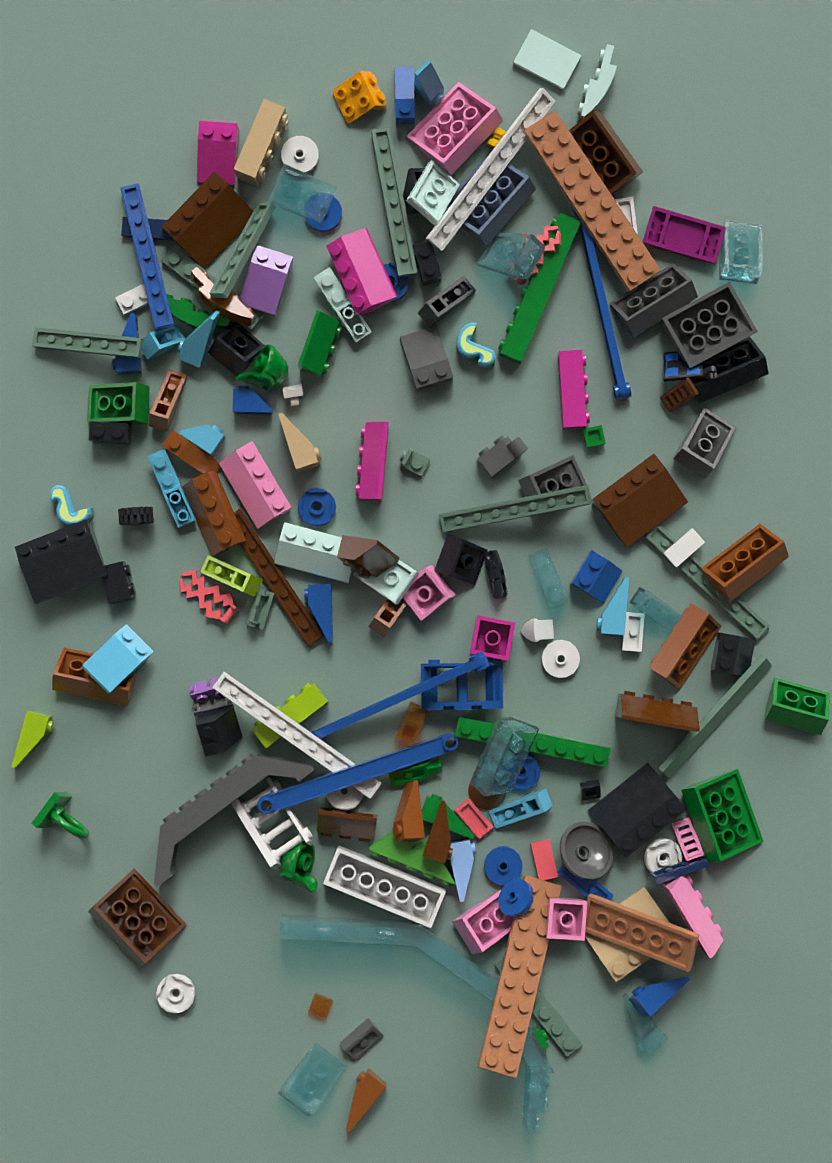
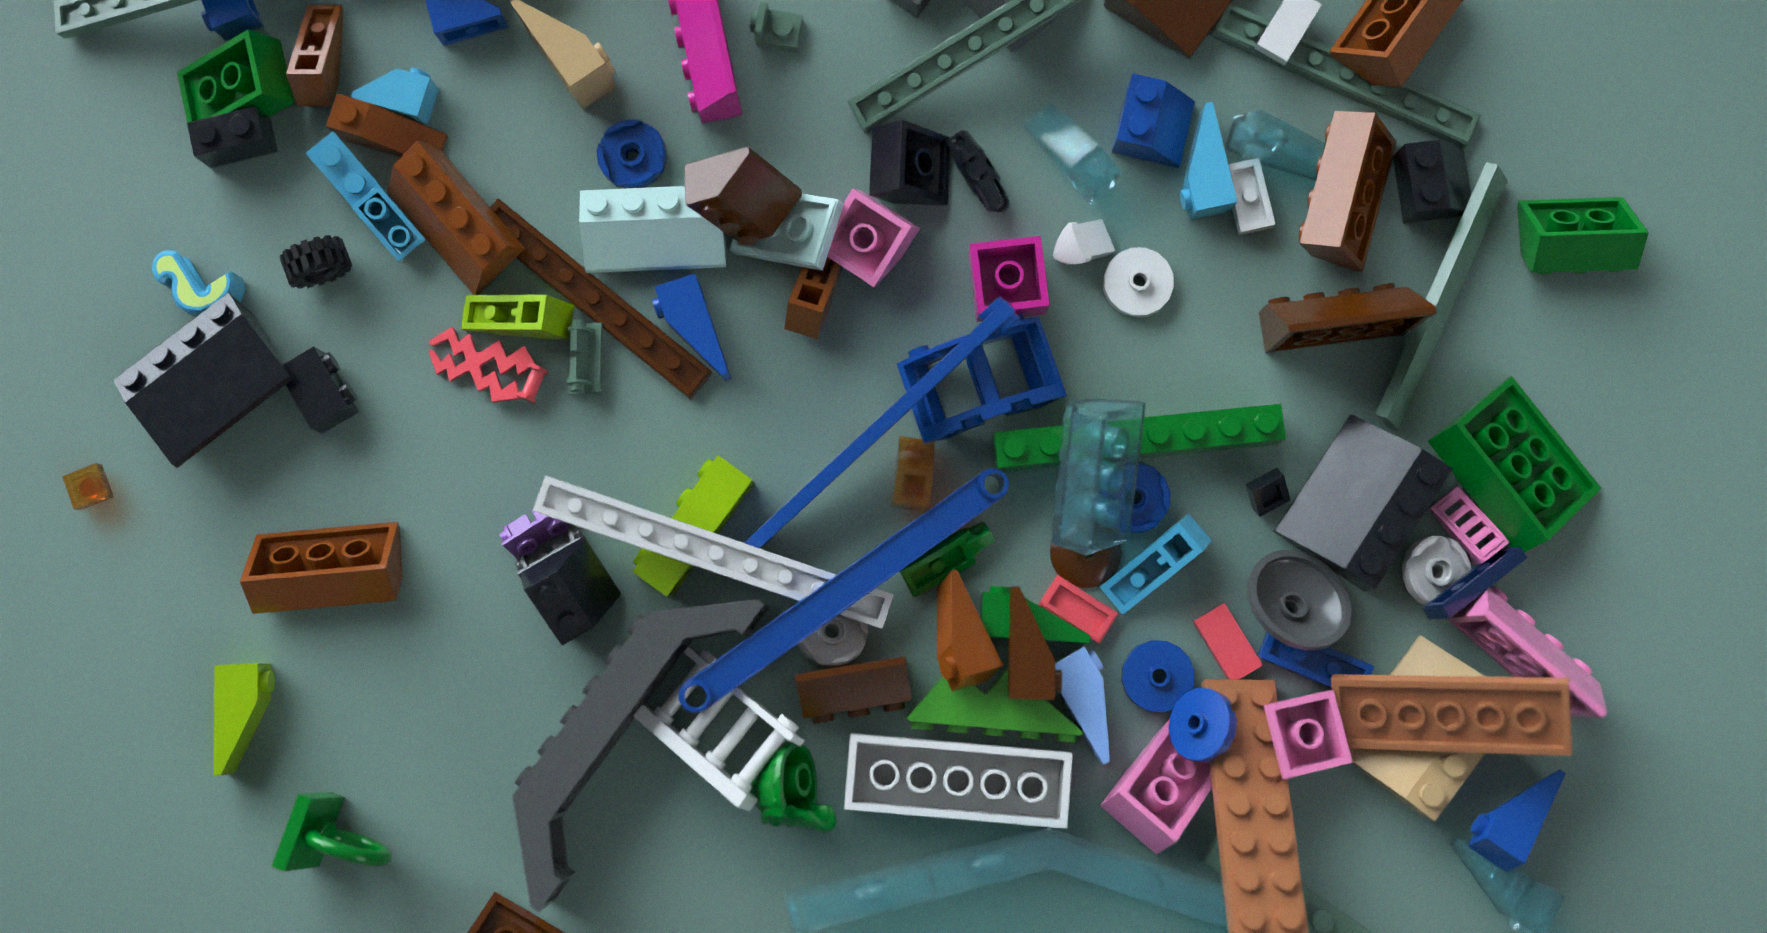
camera: 10 degrees left, 5 degrees down
(117, 659) = (352, 519): medium azure slope -> none
(255, 485) = (512, 147): bright pink slope -> none

